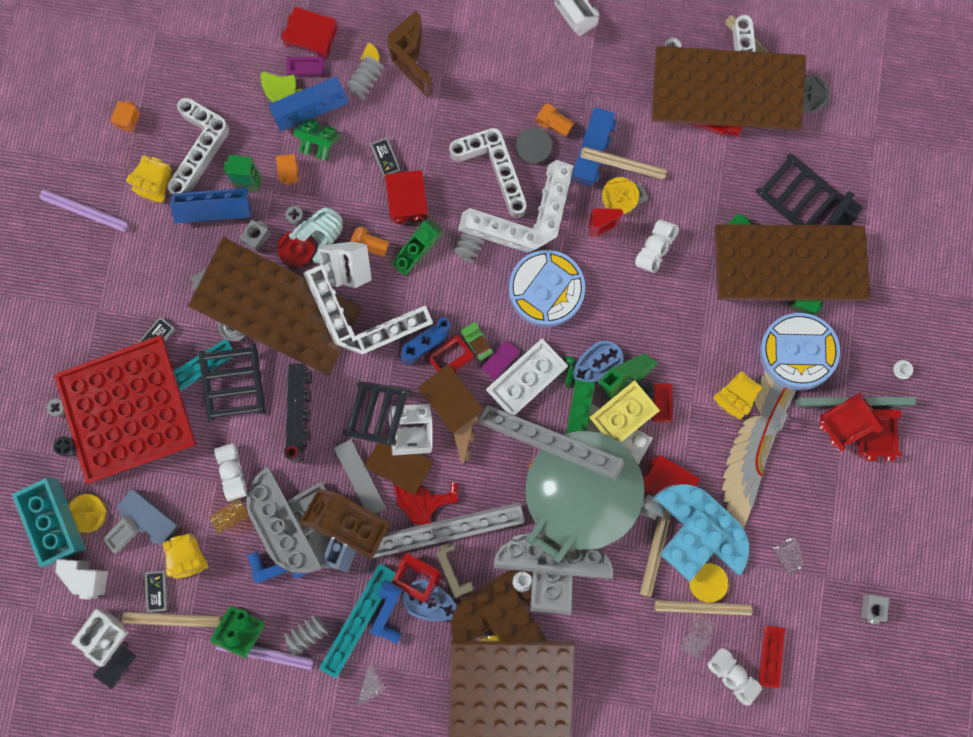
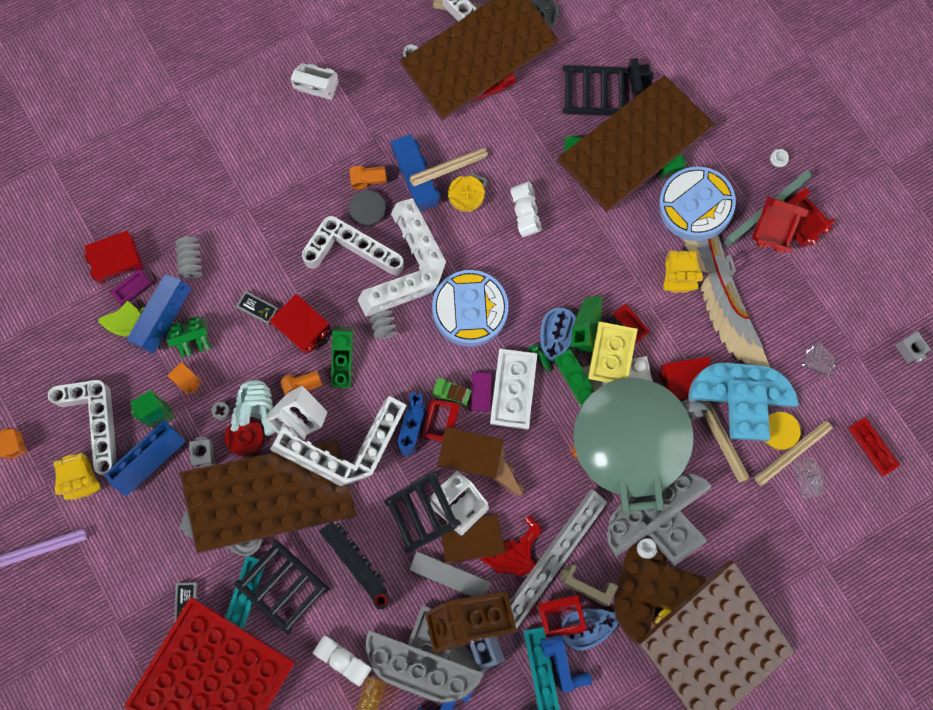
camera: 40 degrees left, 5 degrees down
(370, 51) = (176, 234): yellow tile -> none
(404, 51) = (204, 214): reddish brown bracket -> none
(552, 442) = (578, 420): light grey plate -> none
(603, 220) = (469, 221): red tile -> none
(734, 677) = (862, 485): white piece -> none

